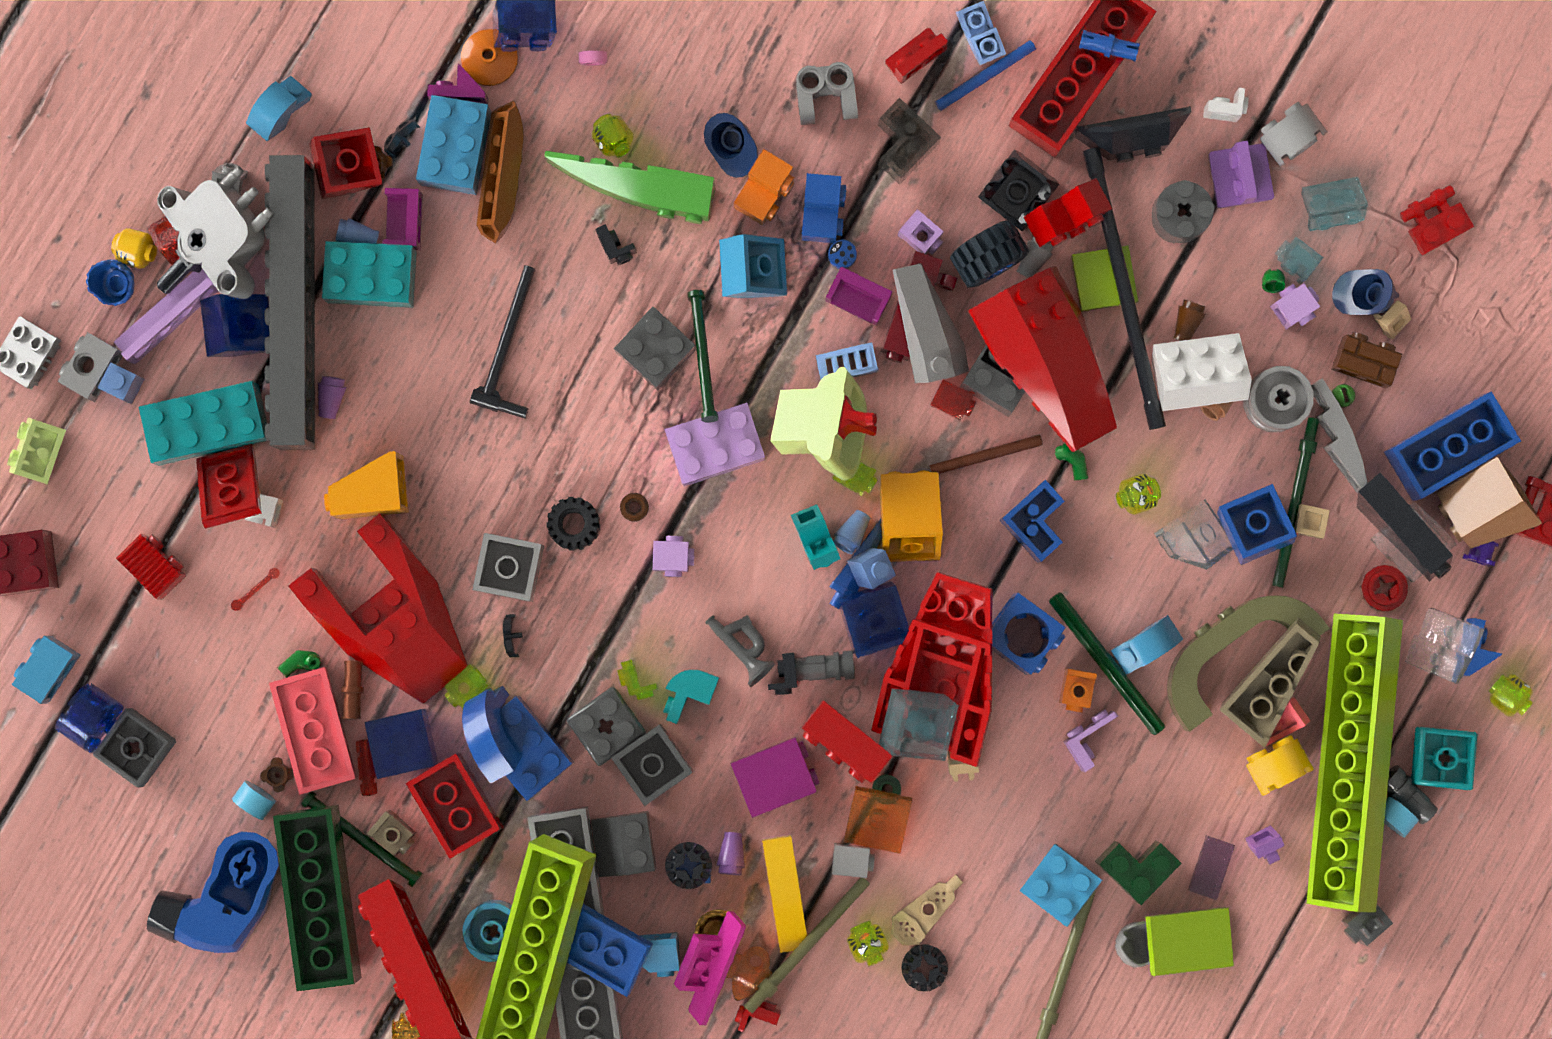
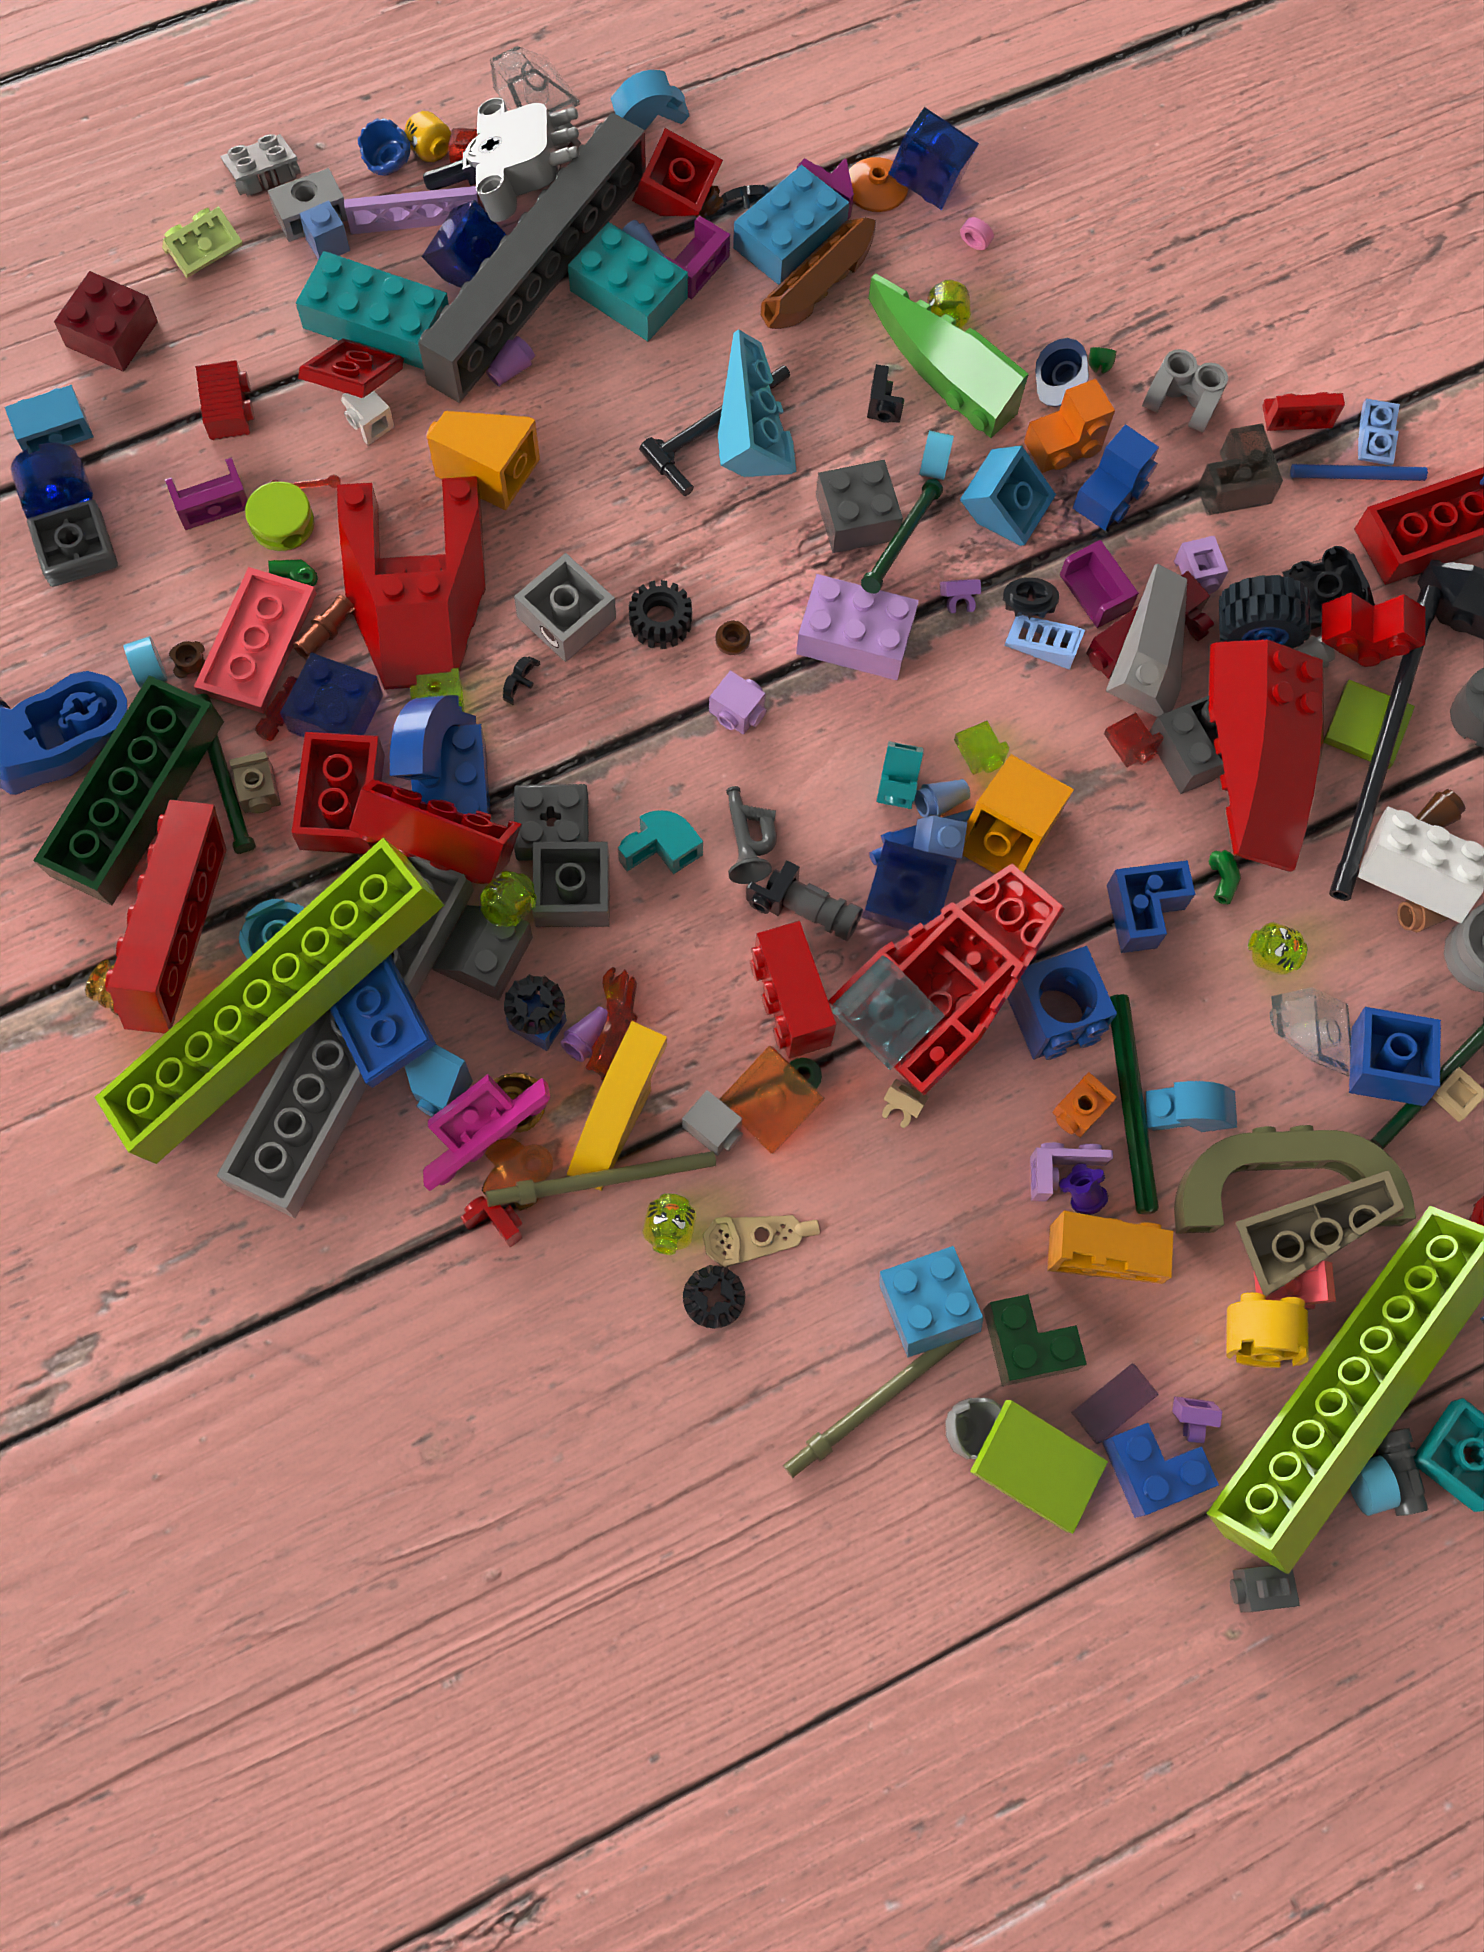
camera: 30 degrees right, 15 degrees down
(179, 148) = (530, 78): none -> clear slope
(198, 647) = (209, 499): none -> magenta panel
(259, 628) = (279, 516): none -> lime head
(537, 333) = (750, 423): none -> medium azure wedge
(546, 798) = (434, 831): none -> red wedge
(625, 812) = (508, 899): none -> clear neon green head
(629, 677) = (610, 790): clear neon green bracket -> none
(683, 270) = (936, 455): none -> medium azure piece
(746, 830) = (620, 1003): none -> clear red arm
(748, 103) = (1103, 357): none -> green hinge
(766, 365) = (960, 589): none -> medium lavender tile
(775, 776) = (691, 983): magenta brick -> none
(806, 336) = (1043, 593): none -> black gear
(825, 423) = (991, 665): yellowish green piece -> none
(842, 254) = (1110, 536): blue tile -> none
(987, 454) = (1137, 815): copper bar -> none
(1113, 745) = (1085, 1189): none -> dark purple brick
(1151, 774) = (1110, 1248): none -> light orange wedge
(1262, 903) = (1151, 1480): none -> blue brick

